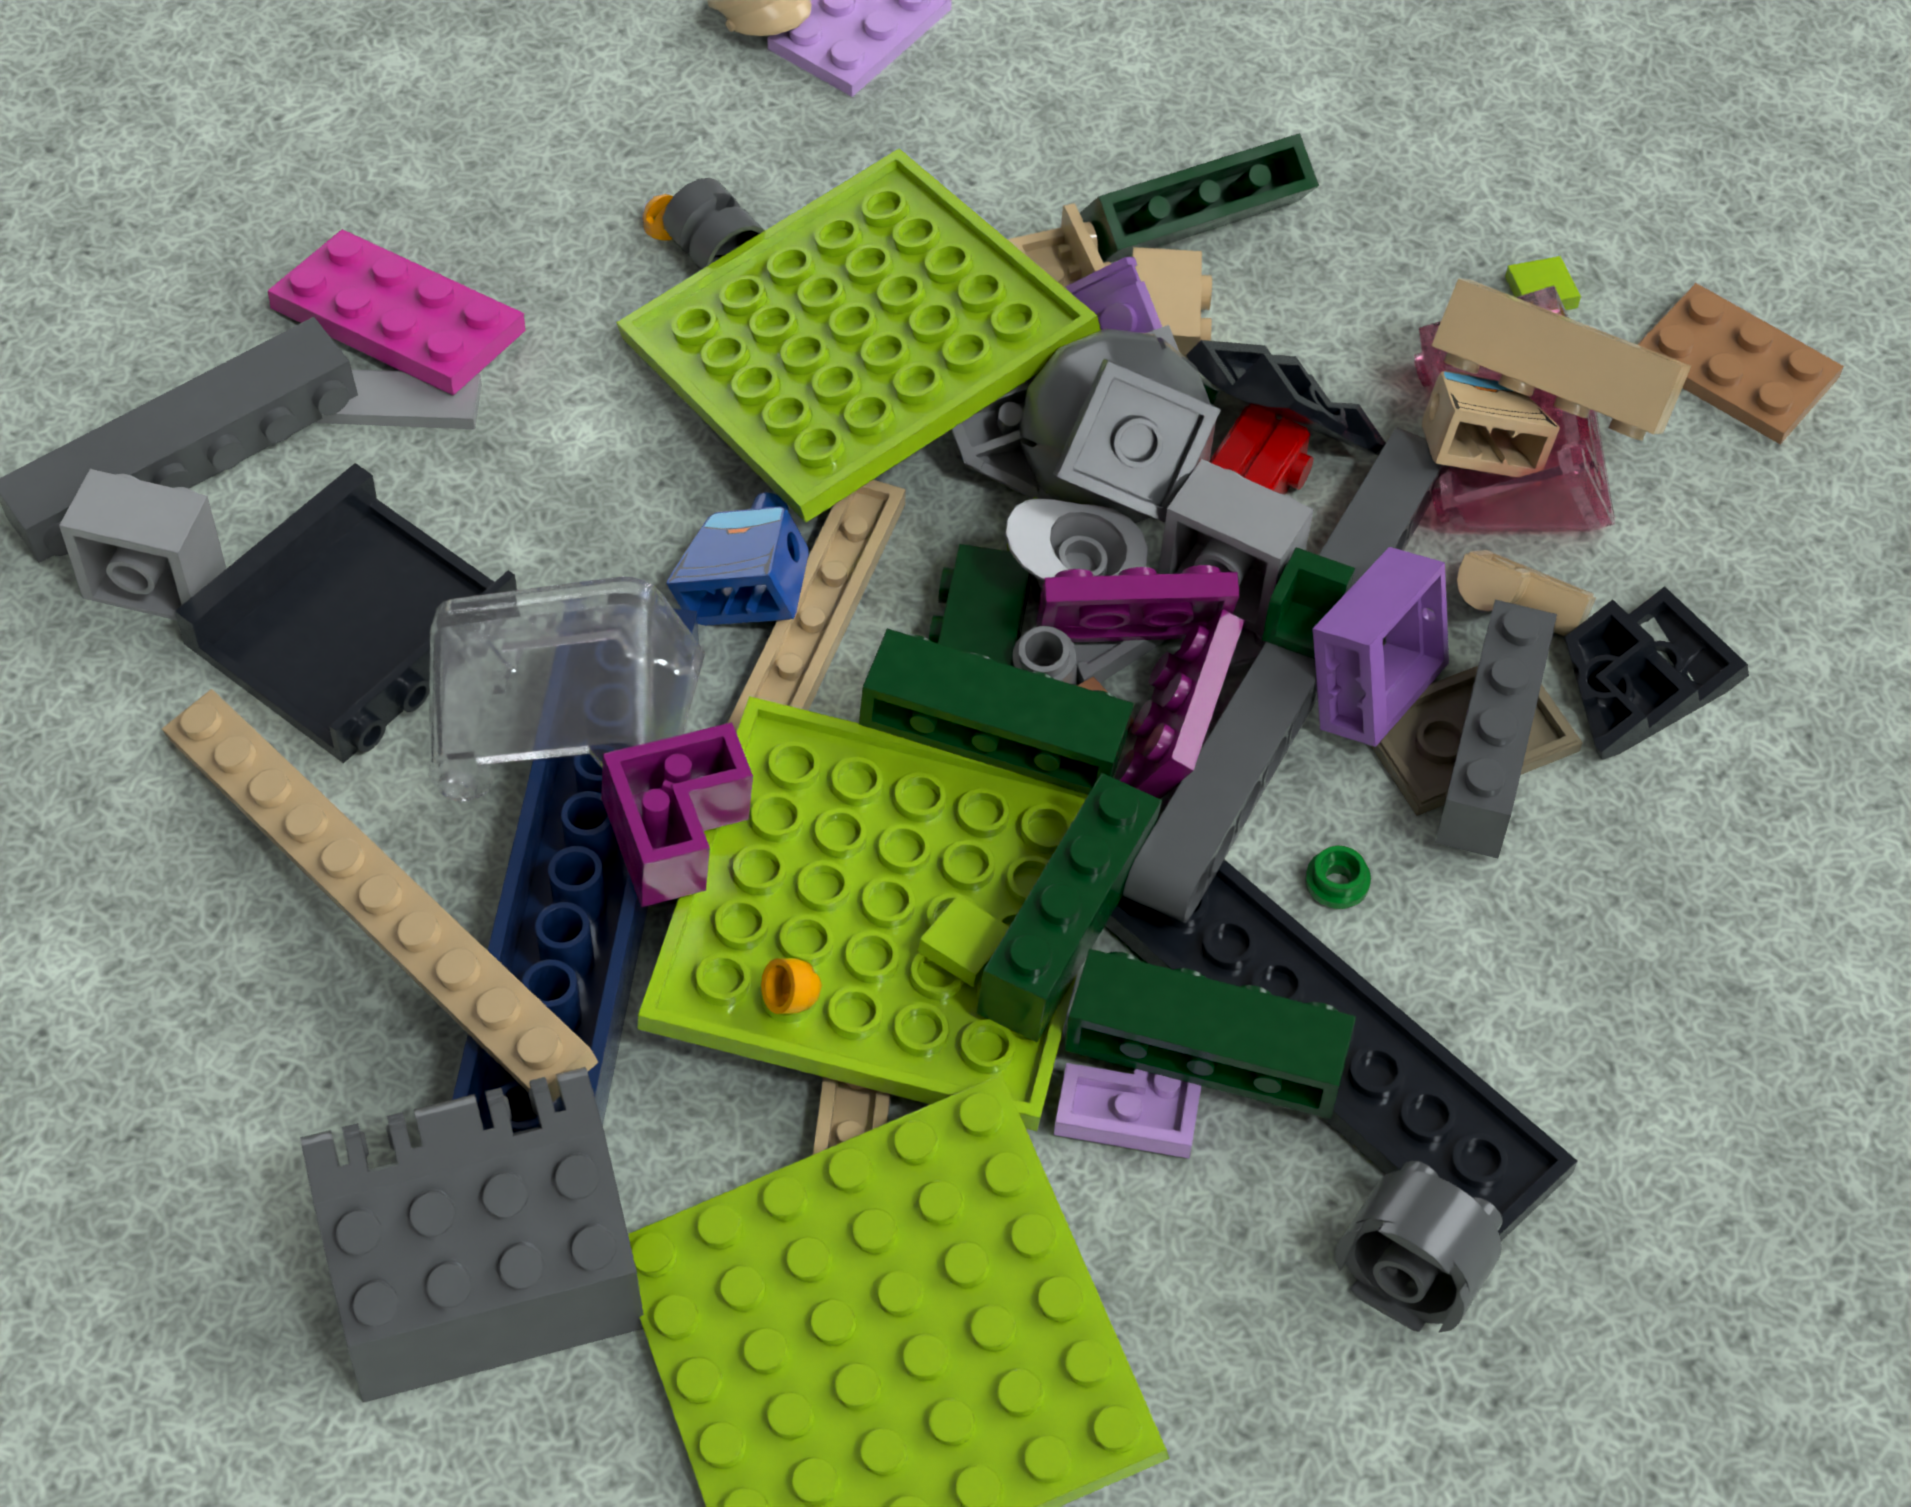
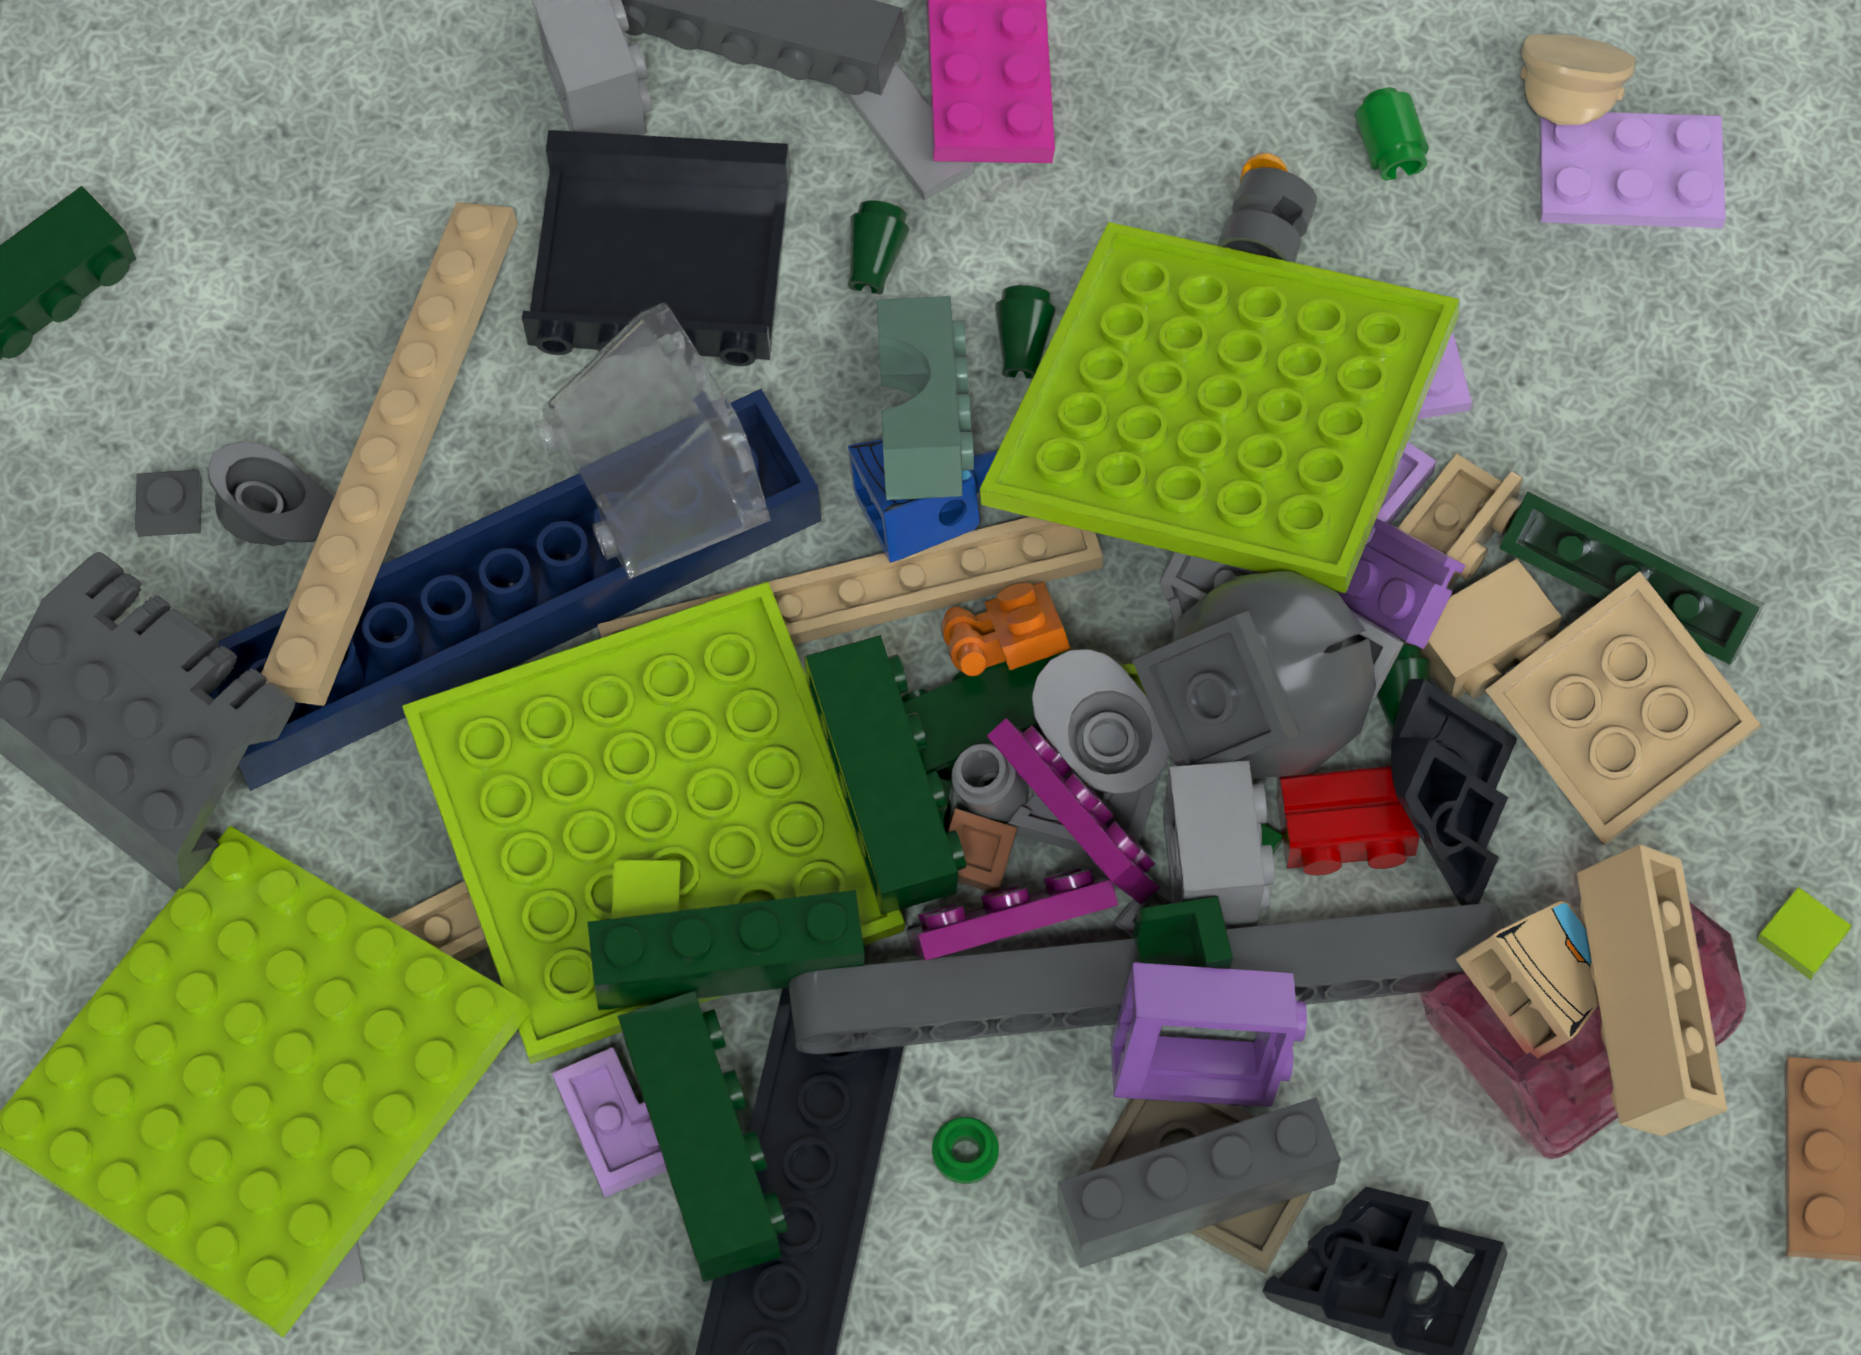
camera: 60 degrees right, 10 degrees up
(240, 1115) = (168, 503): none -> dark grey plate
(324, 1025) = (265, 495): none -> dark grey piece
(488, 473) = (875, 242): none -> dark green cone
(624, 490) = (930, 435): none -> sand green arch
(655, 426) = (1023, 328): none -> dark green cone
(666, 798) = (580, 584): magenta brick -> none
(705, 123) = (1392, 133): none -> green brick
(790, 986) = (499, 796): light orange hinge -> none
(920, 577) = (1016, 629): none -> orange plate
(1303, 262) = (1623, 708): none -> tan plate
(1489, 577) = (1400, 1111): tan brick -> none

